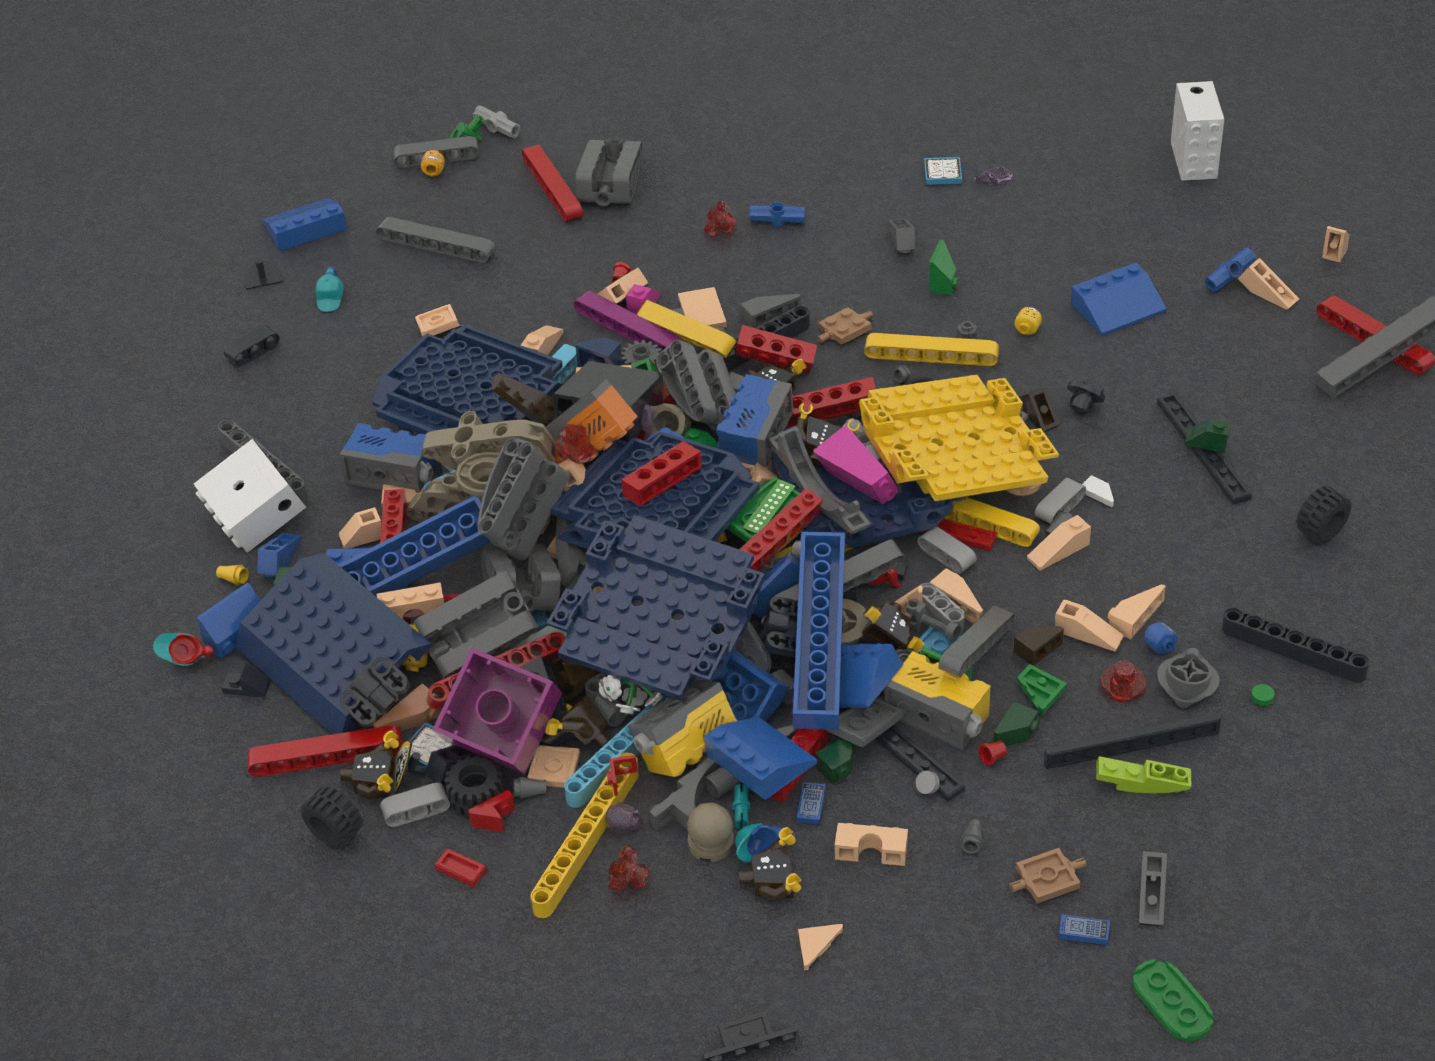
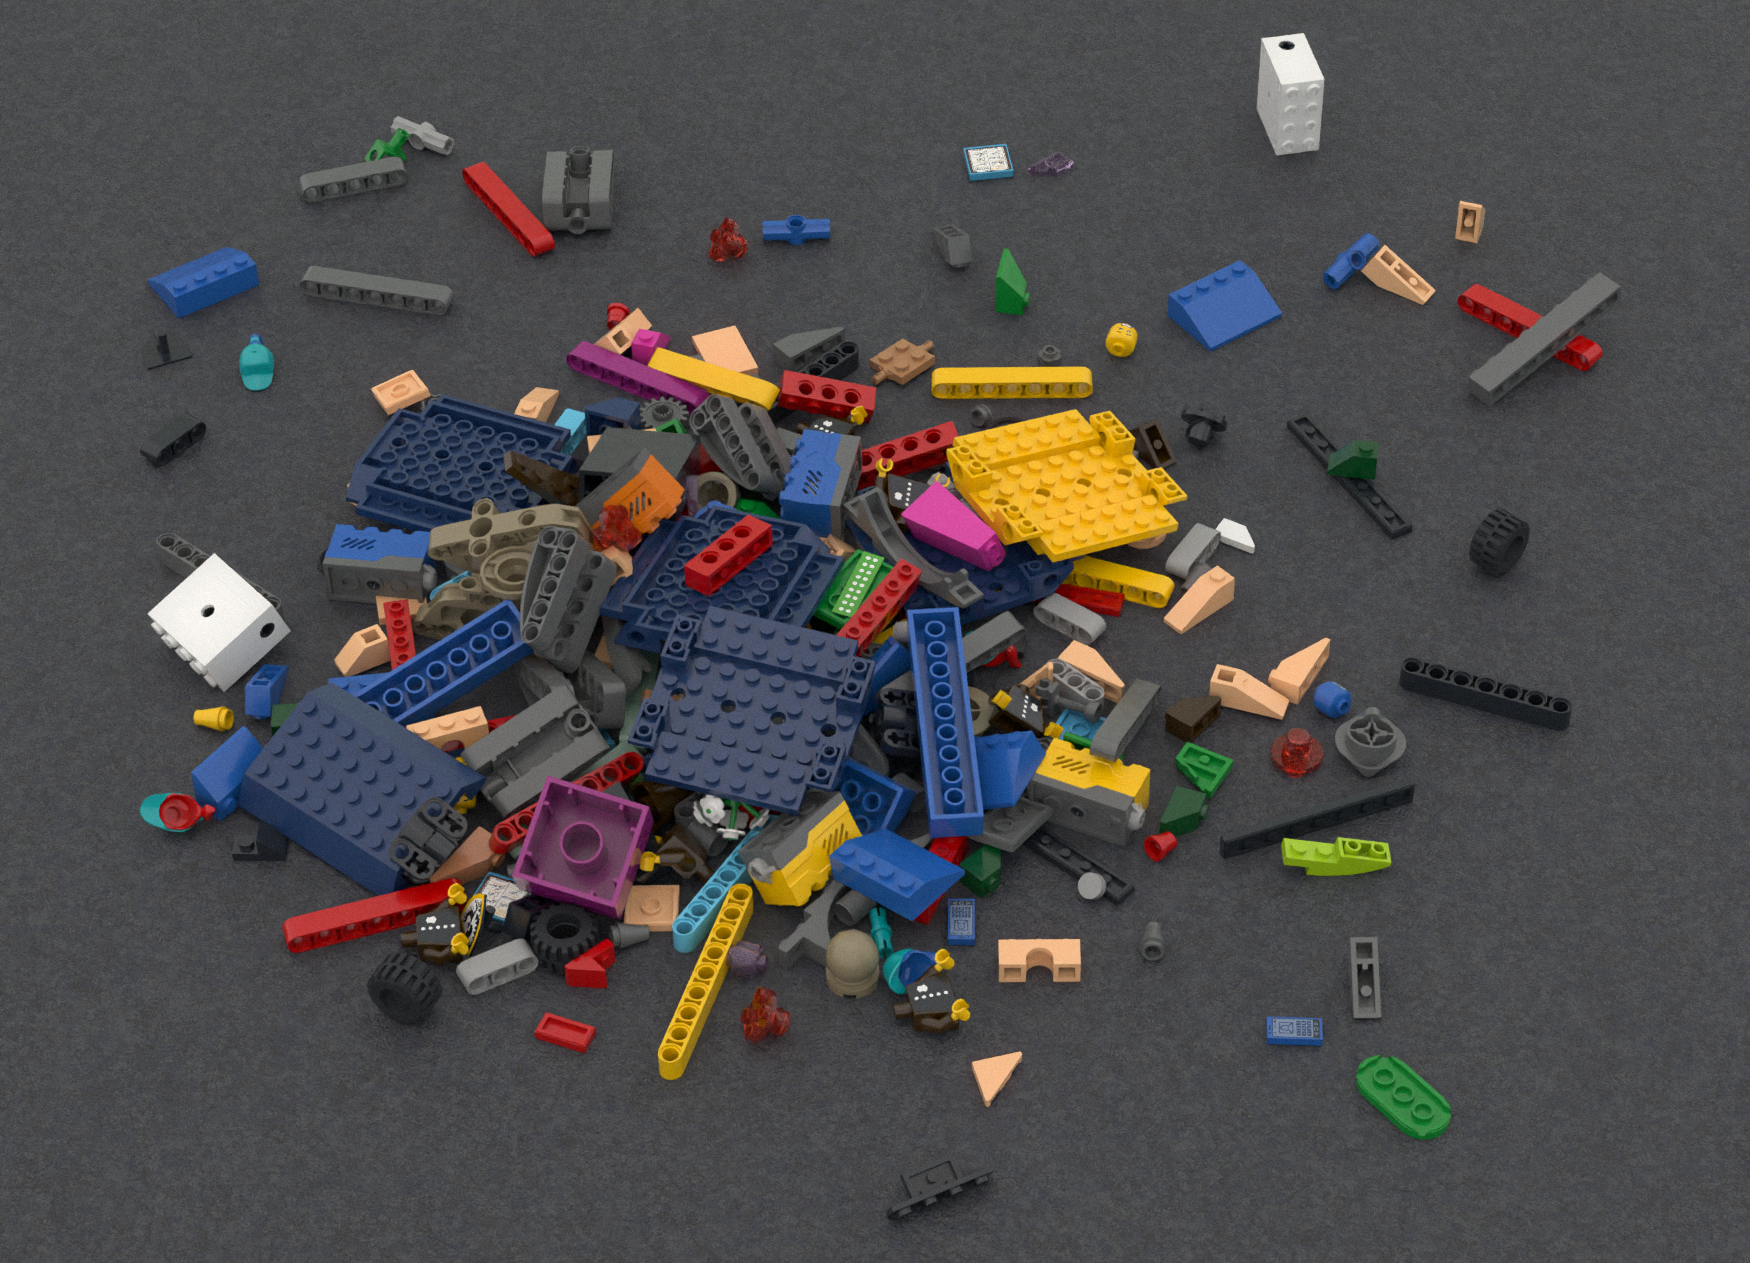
camera: 10 degrees left, 0 degrees up
(432, 163) = (352, 194): light orange head -> none
(616, 770) = (728, 909): red bracket -> none
(1048, 875) = (1245, 975): medium nougat plate -> none
(1262, 695) = (1456, 754): green tile -> none

